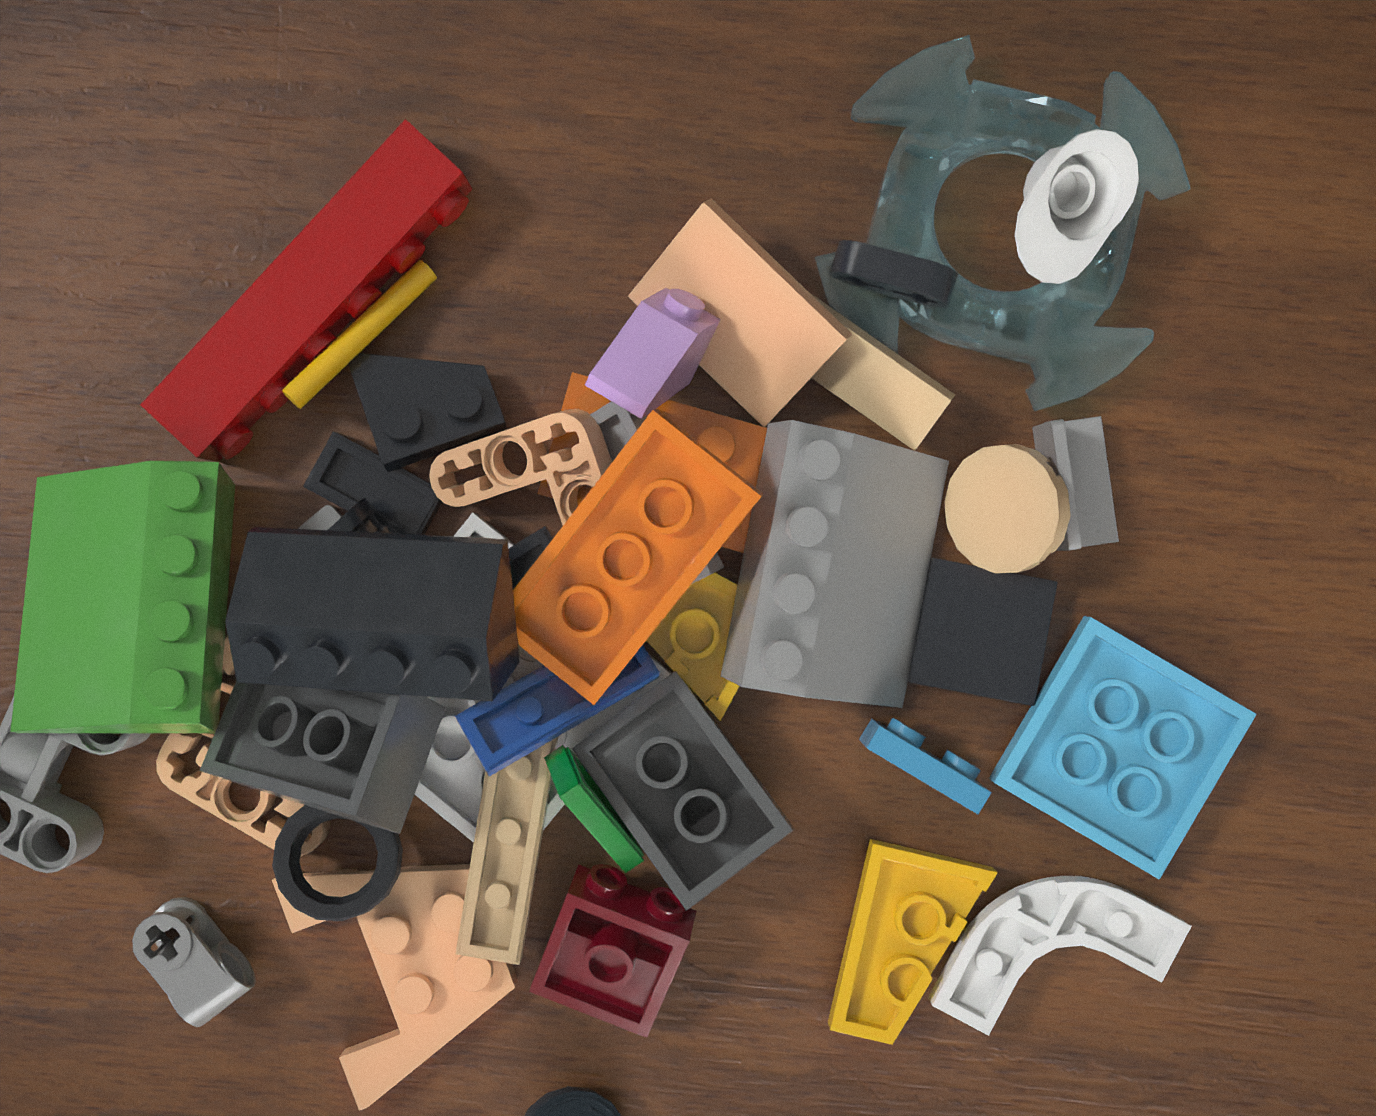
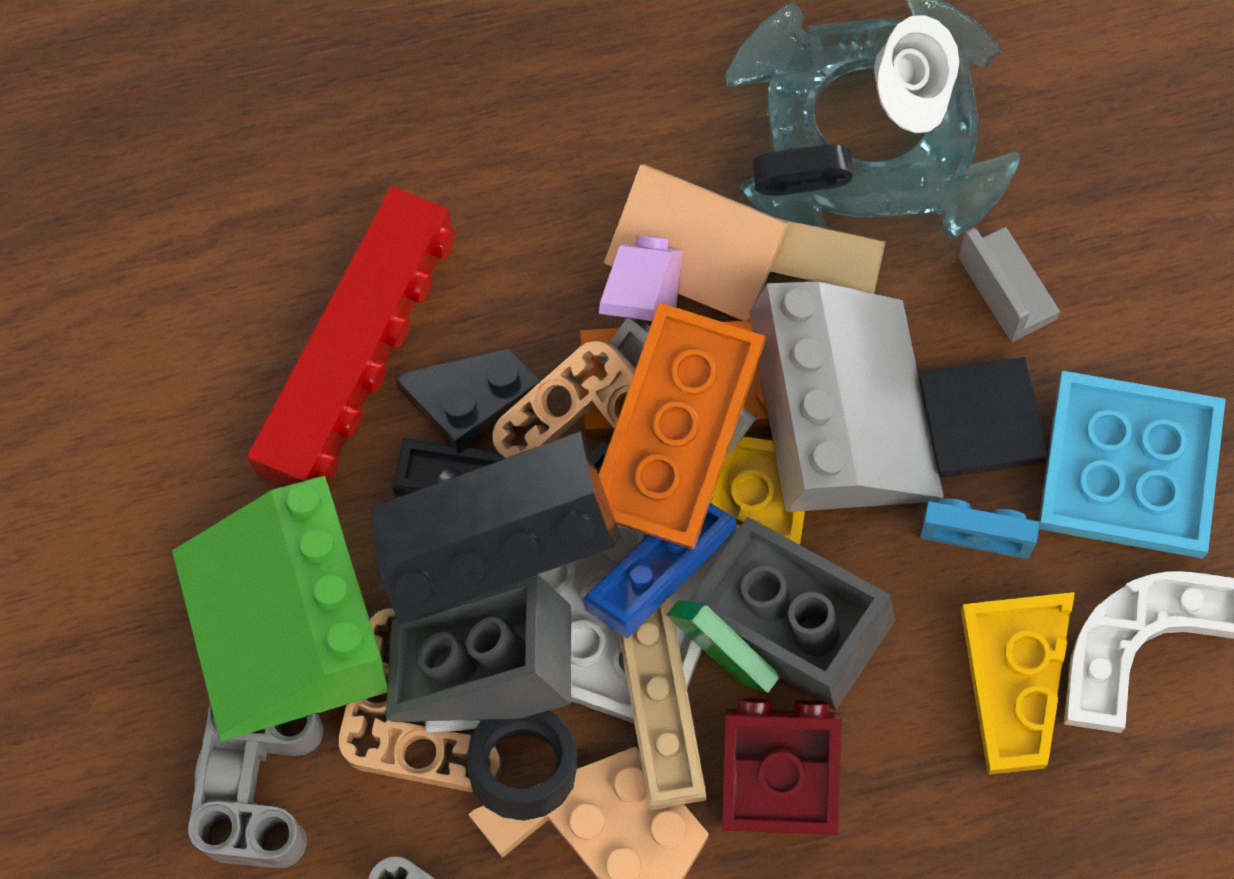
camera: 20 degrees left, 20 degrees down
(359, 334) = (401, 356): yellow bar -> none
(1006, 508) = (960, 310): tan tile -> none

